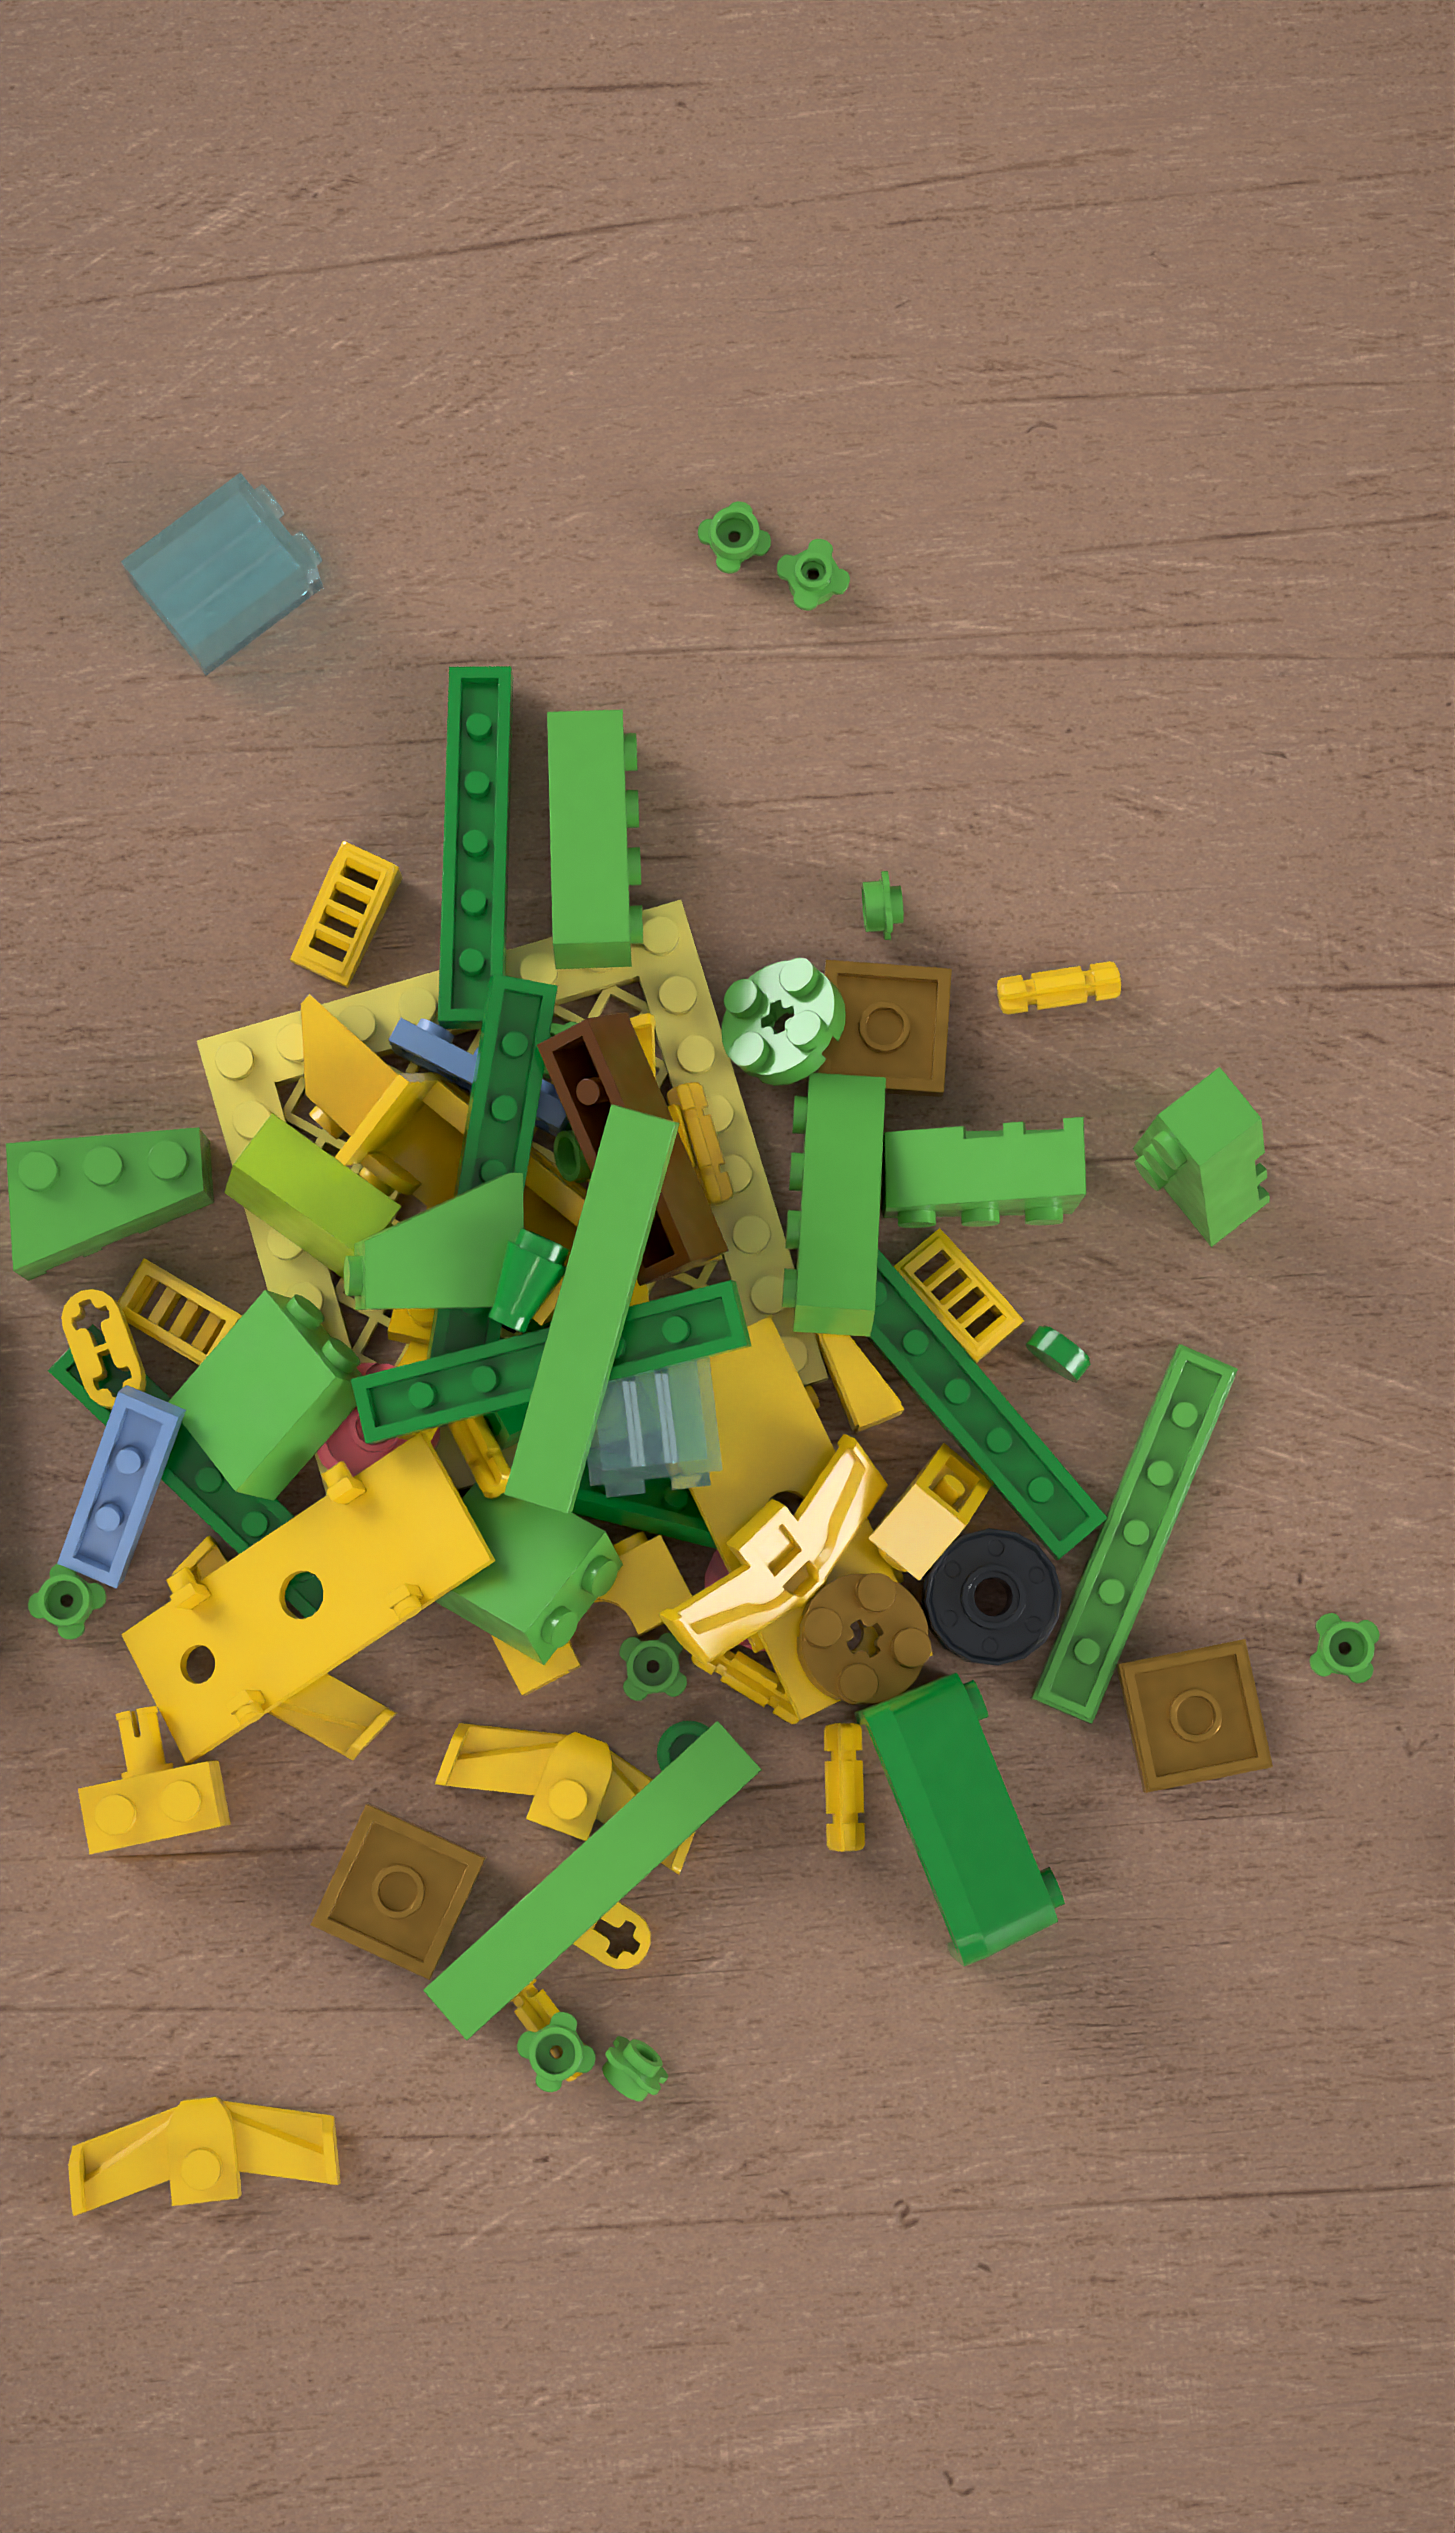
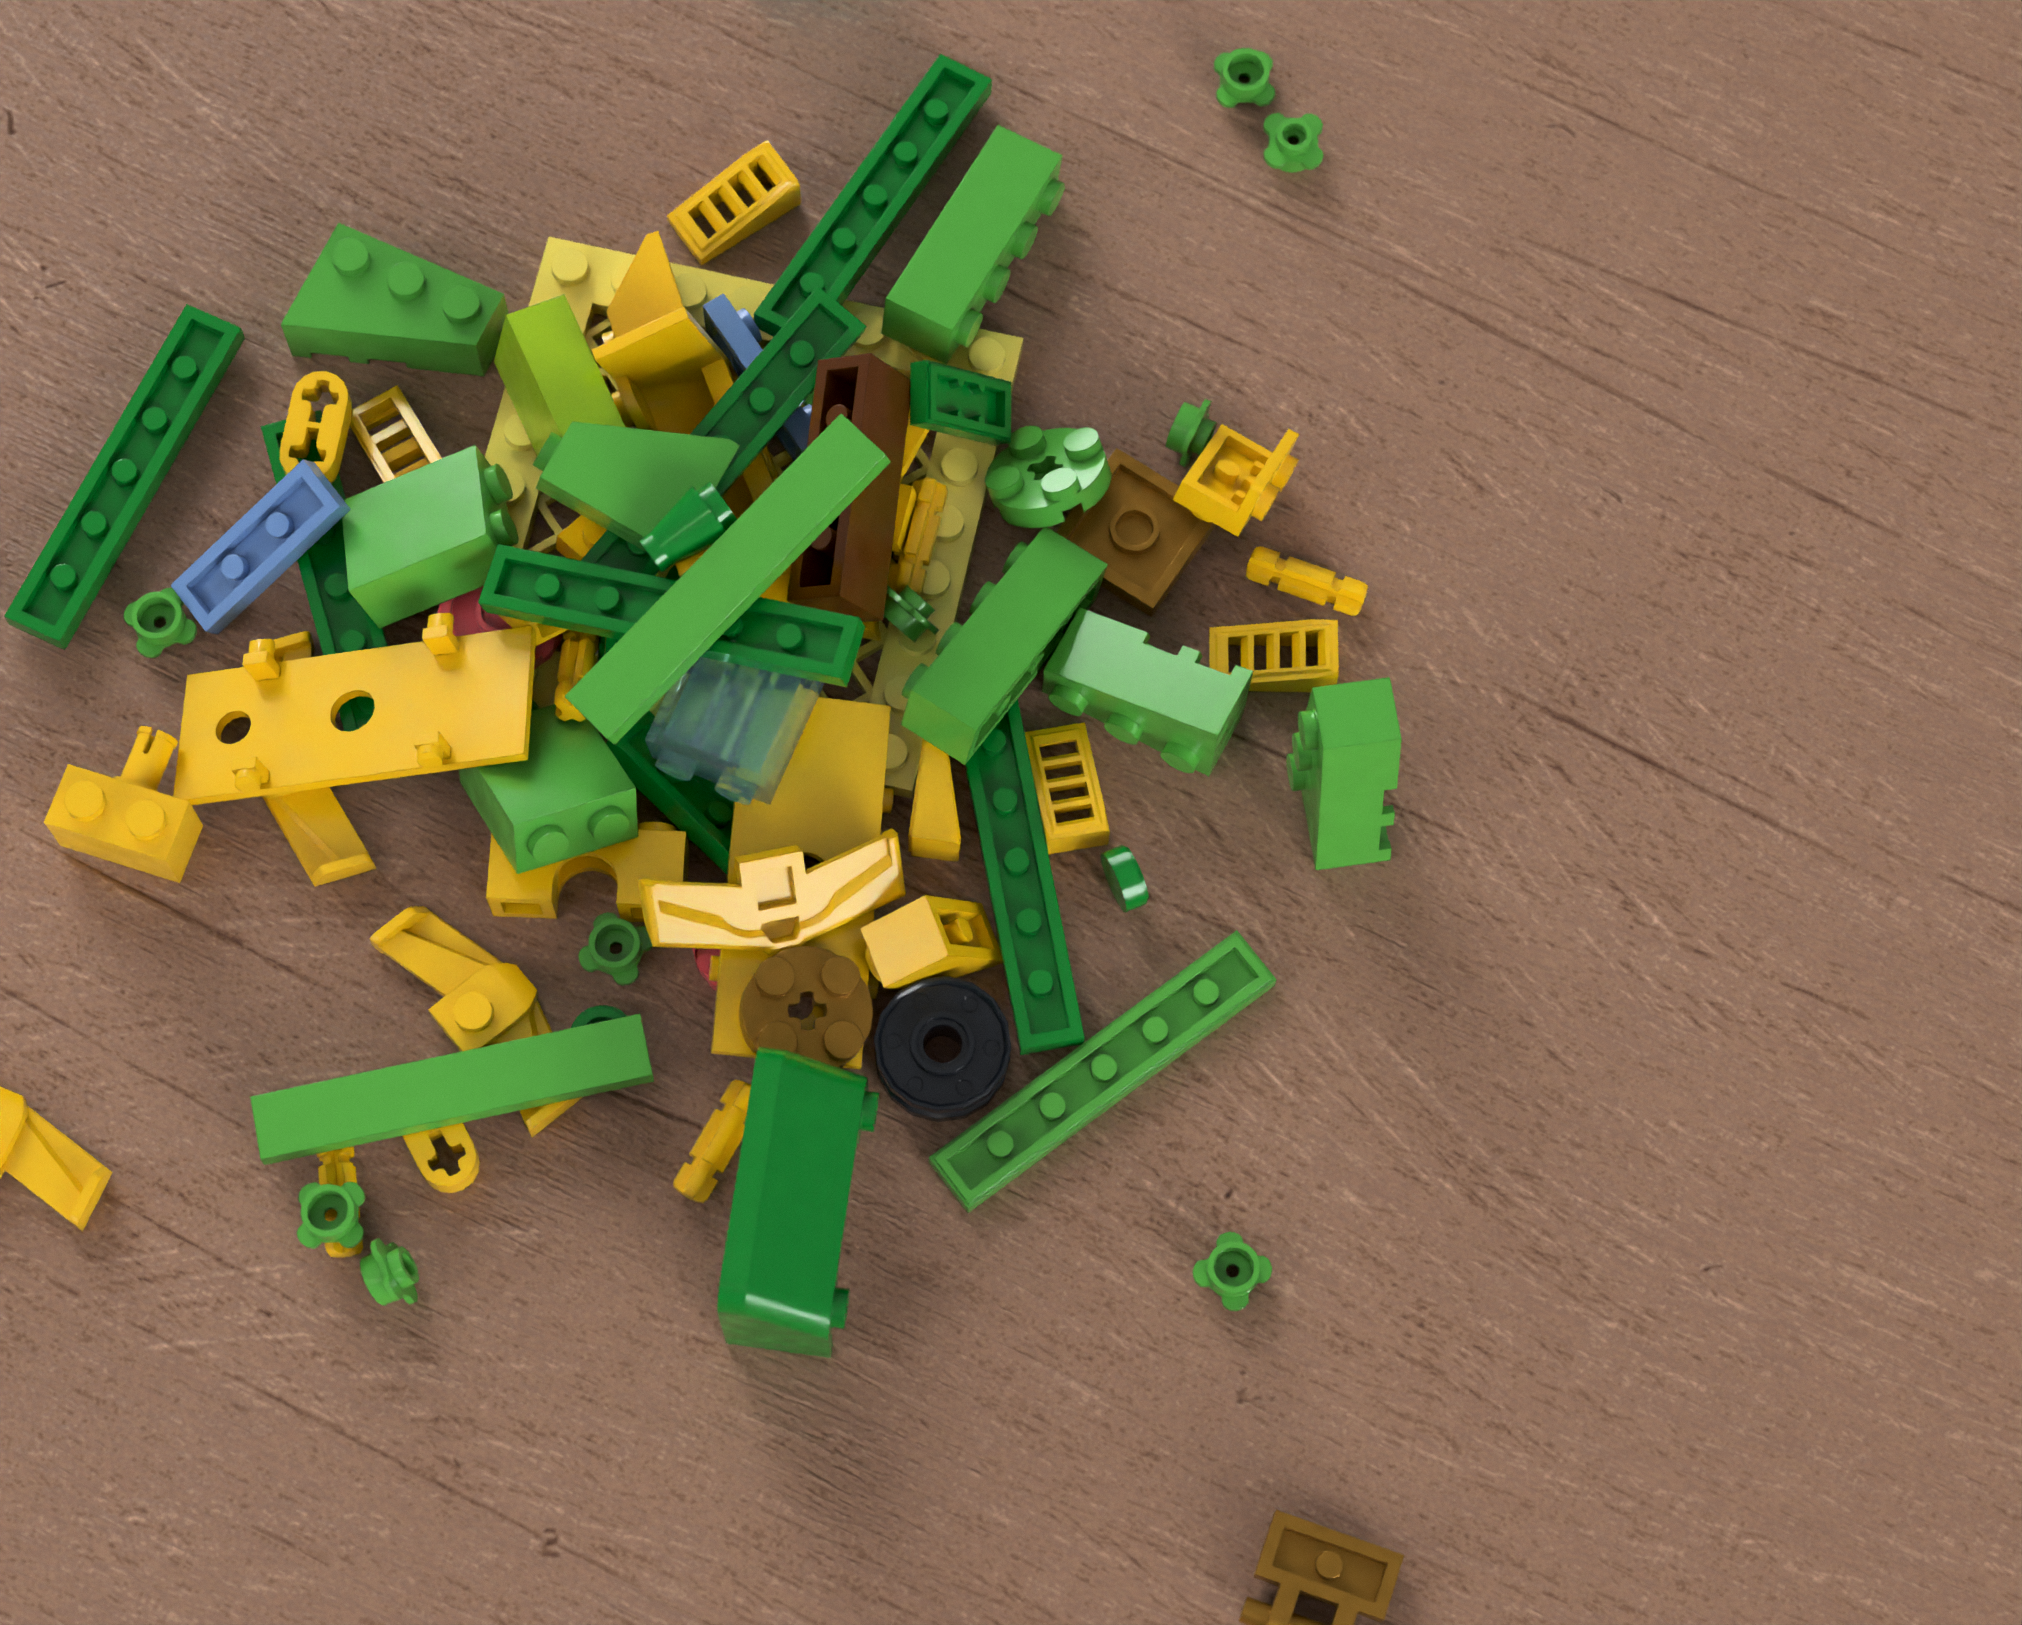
camera: 30 degrees right, 10 degrees down
(398, 1891) = (284, 1010): pearl gold plate -> none
(674, 1003) = (960, 402): none -> green plate
(740, 1222) = (909, 612): none -> bright green plate
(752, 1681) = (689, 1000): yellow axle -> none
(952, 931) = (1236, 479): none -> yellow bracket
(1117, 1045) = (1298, 635): none -> yellow slope
(1194, 1716) = (1062, 1252): pearl gold plate -> none

